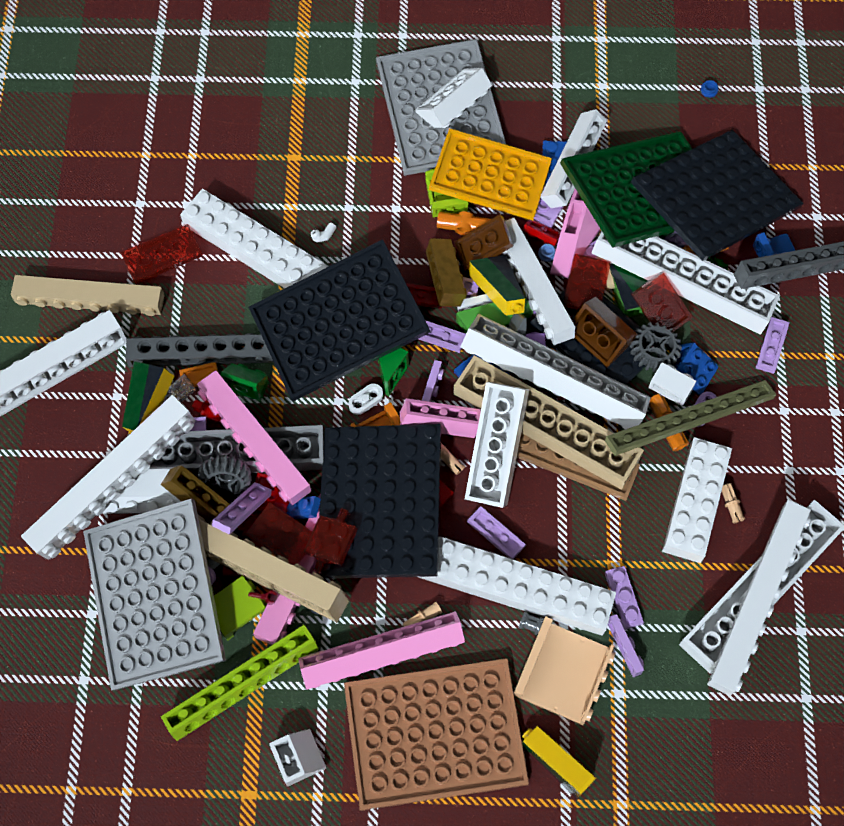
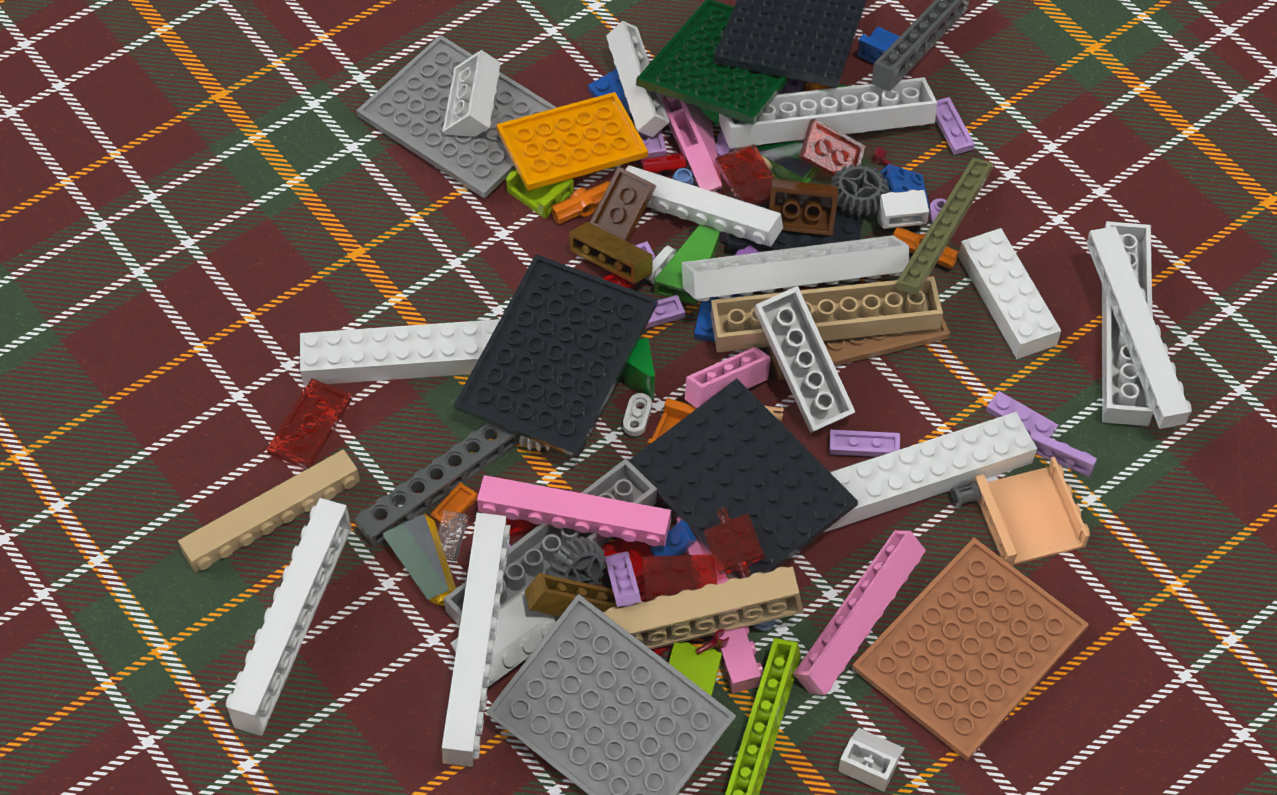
camera: 40 degrees left, 10 degrees down
(245, 381) = (515, 469): green slope -> none
(325, 235) = (457, 300): white arm -> none
(426, 614) = (869, 553): light nougat axle -> none
(431, 388) = (683, 351): lavender plate -> none
(498, 283) = (671, 227): slope -> none
(518, 324) = (721, 248): dark grey slope -> none
(557, 761) = (1098, 586): yellow slope -> none
(698, 332) = (879, 157): none -> dark red hand
(732, 503) = (1040, 277): light nougat axle -> none

